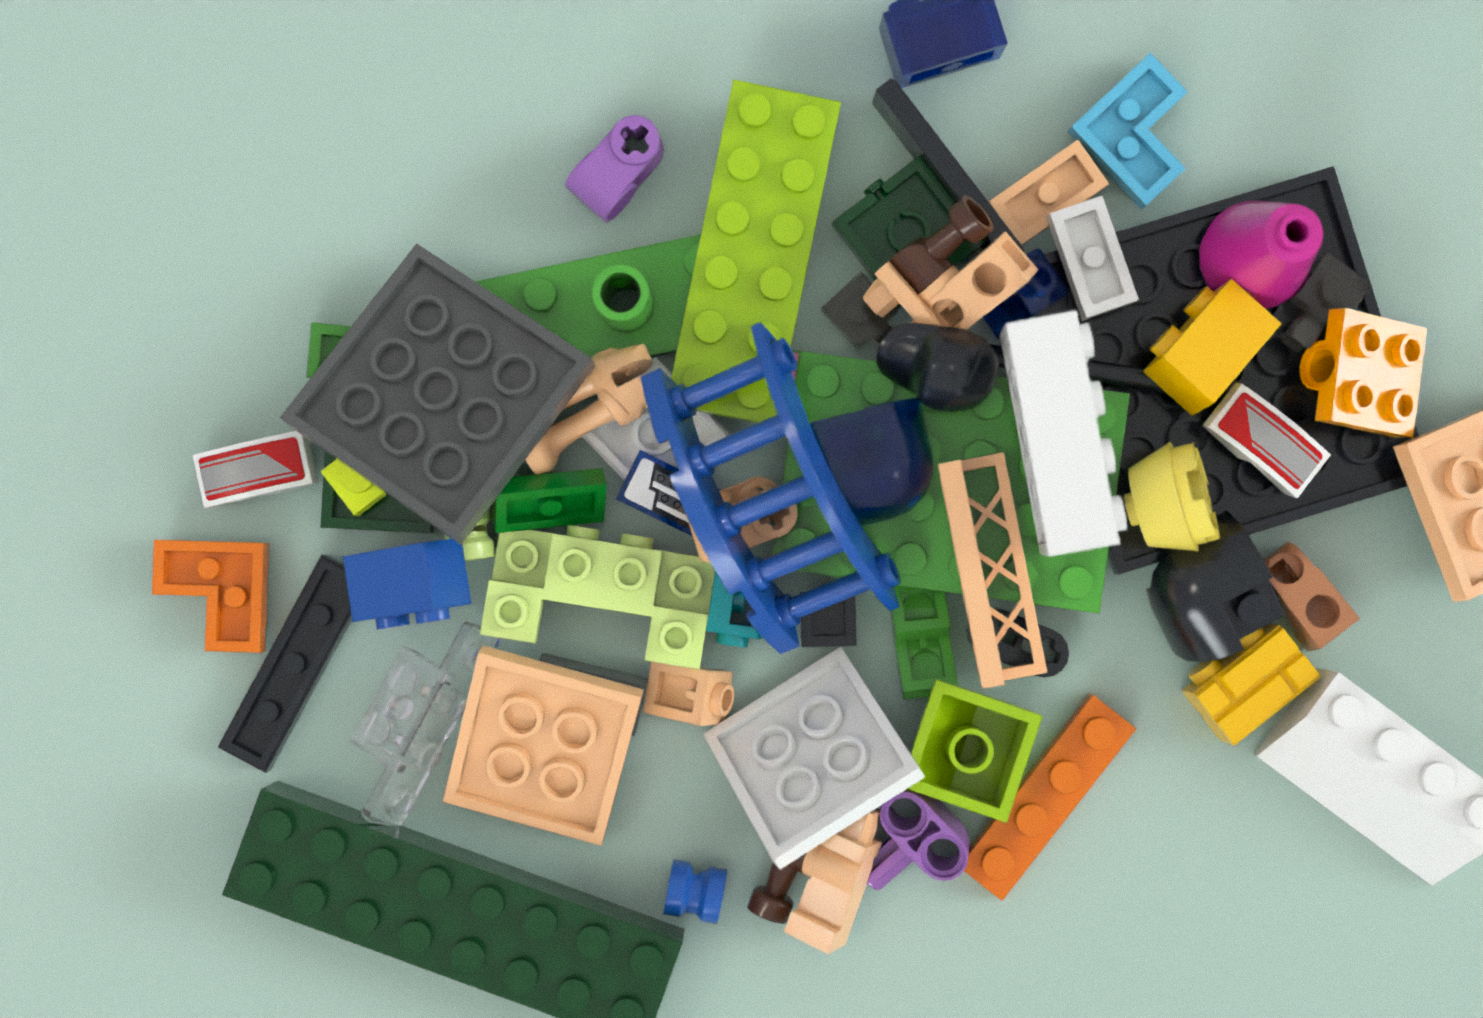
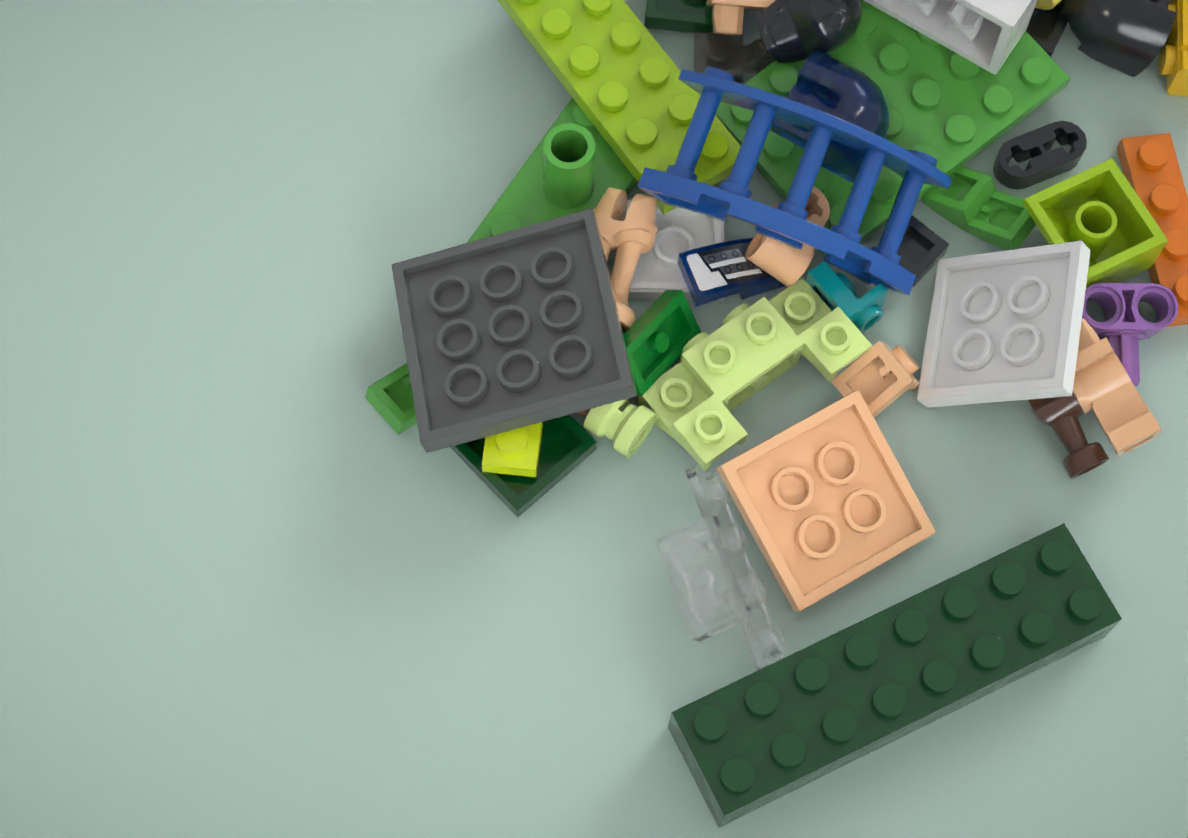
camera: 45 degrees left, 20 degrees down
(231, 578) = (481, 611): orange plate -> none
(255, 469) = (427, 522): slope -> none
(291, 668) = (595, 630): black tile -> none
(407, 580) = (618, 479): blue brick -> none
(610, 173) = (471, 111): medium lavender piece -> none
(695, 893) = (1030, 499): blue wheel -> none
(971, 573) = (973, 115): light nougat fence -> none

